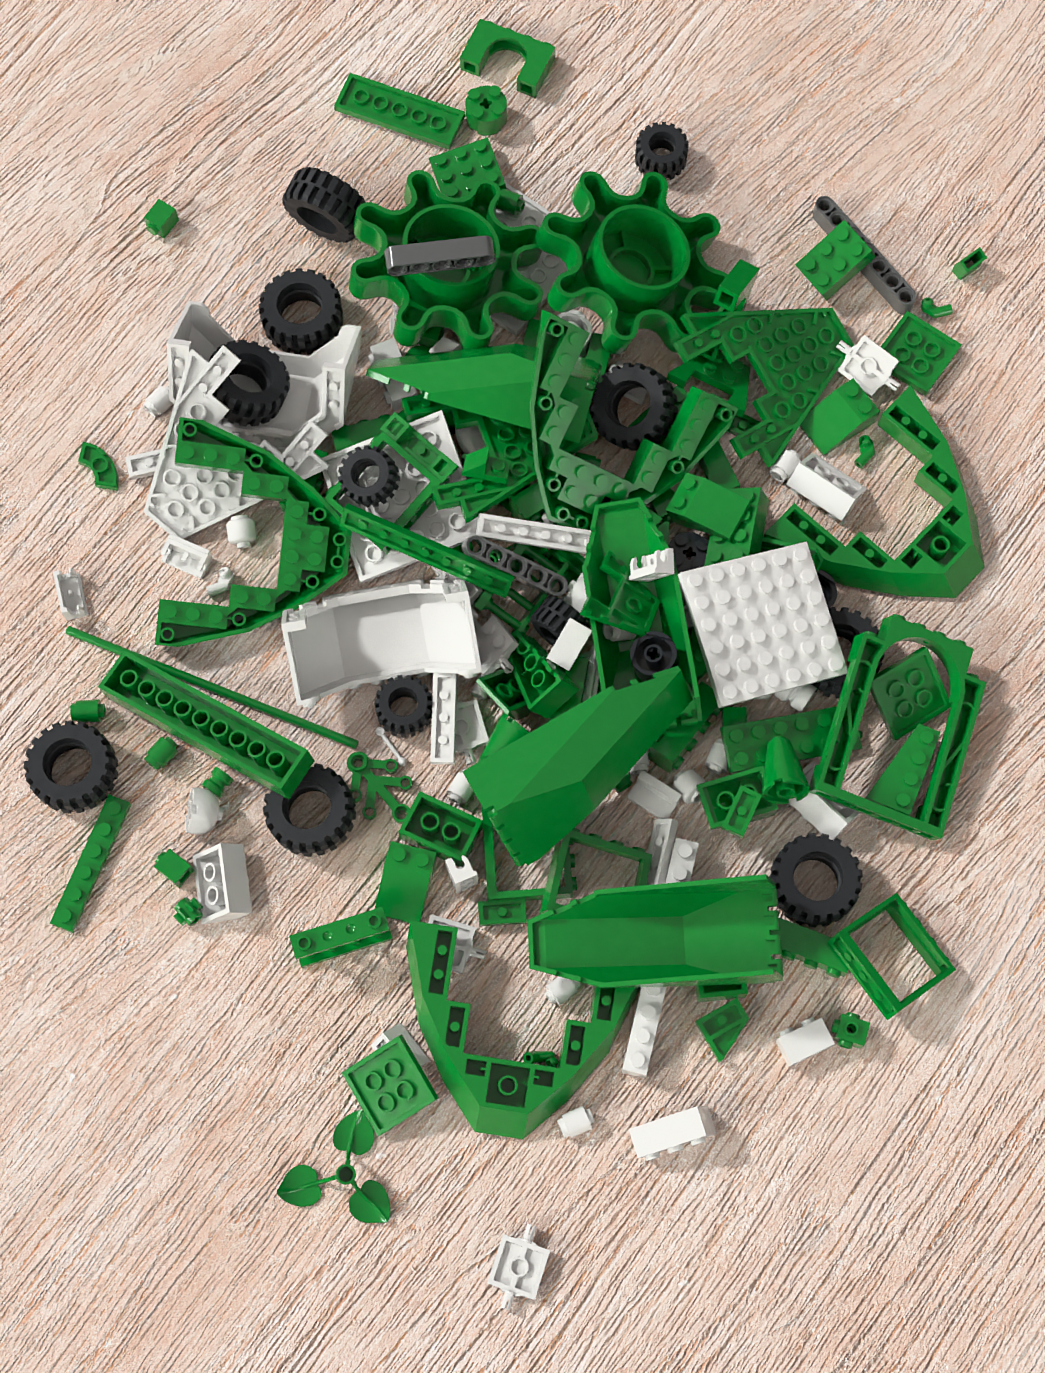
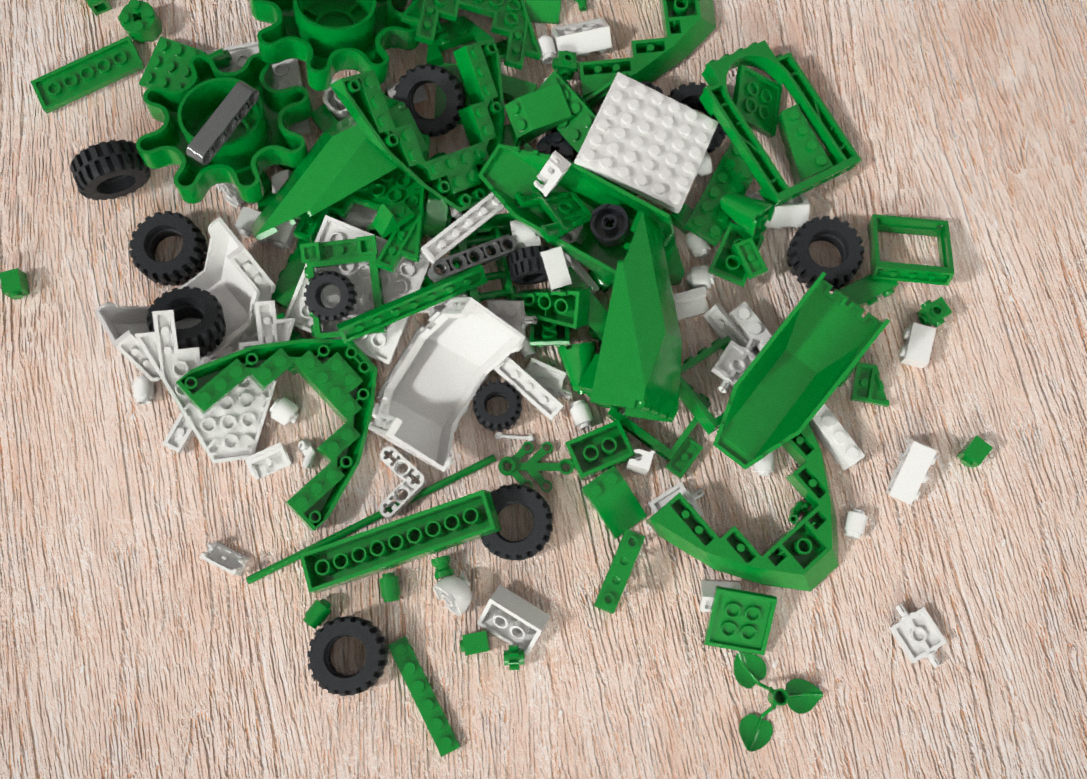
camera: 45 degrees left, 5 degrees up
(101, 465) = (151, 465): green tile -> none
(266, 688) = (406, 484): none -> white beam
(623, 874) = (733, 363): none -> white plate
(745, 1180) = (974, 452): none -> green brick
(782, 493) = (565, 64): none -> green brick

